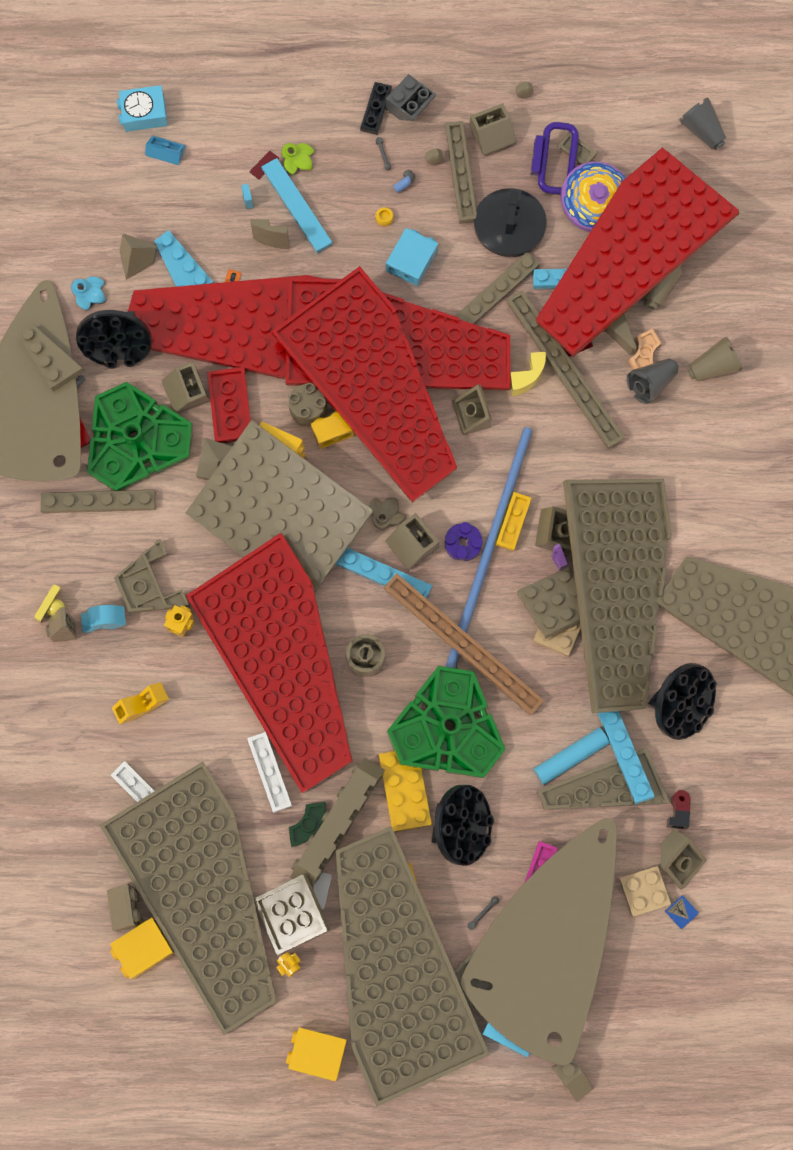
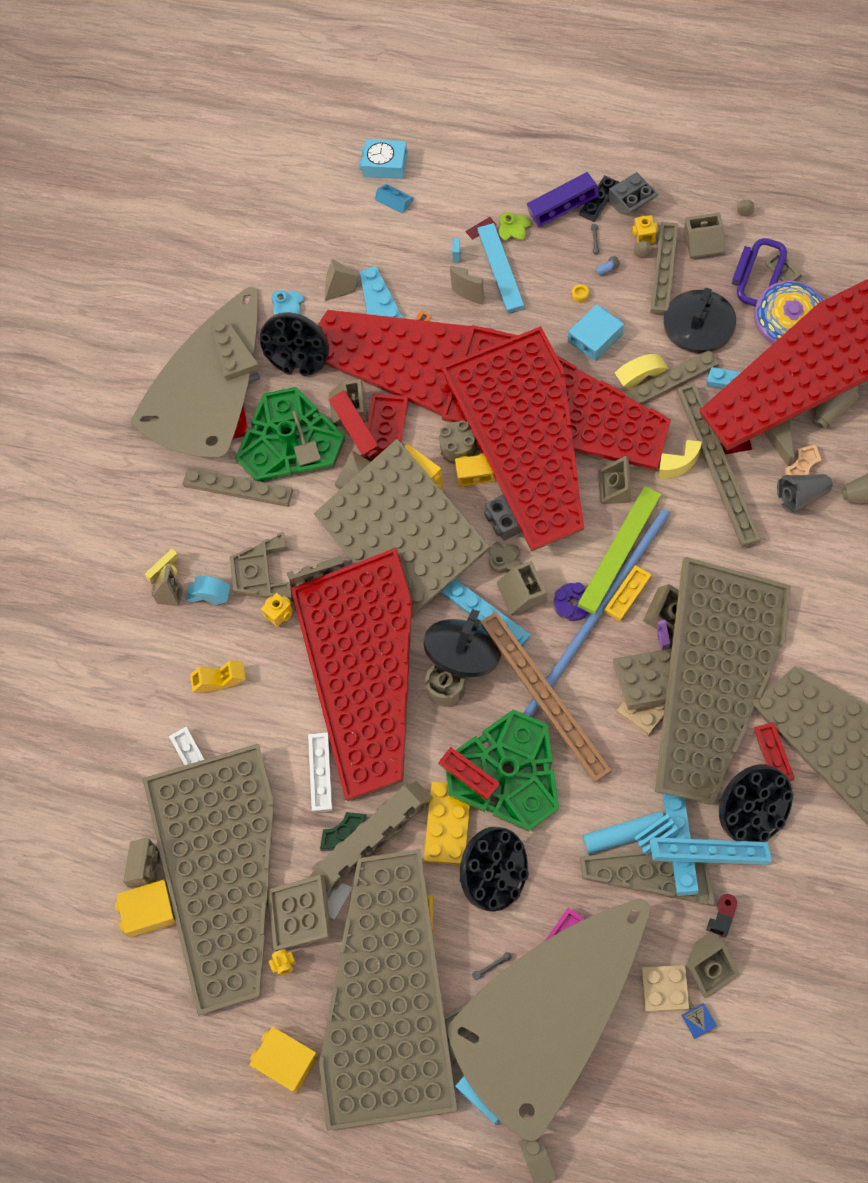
camera: 25 degrees right, 10 degrees down
(159, 449) = (307, 452): none -> dark tan piece
(201, 412) = (354, 424): none -> red brick
(206, 573) = (308, 573): none -> dark tan wing
(341, 118) = (563, 199): none -> dark purple brick
(371, 474) = (501, 518): none -> dark grey brick
(372, 617) = (461, 647): none -> black bracket
(415, 740) = (468, 773): none -> red plate
(431, 135) = (645, 229): none -> yellow brick
(466, 287) = (638, 369): none -> light yellow brick
(494, 480) = (619, 550): none -> lime tile
(598, 746) = (656, 831): none -> medium azure tile
(655, 756) = (710, 851): none -> medium azure plate
(686, 643) = (773, 749): none -> red plate

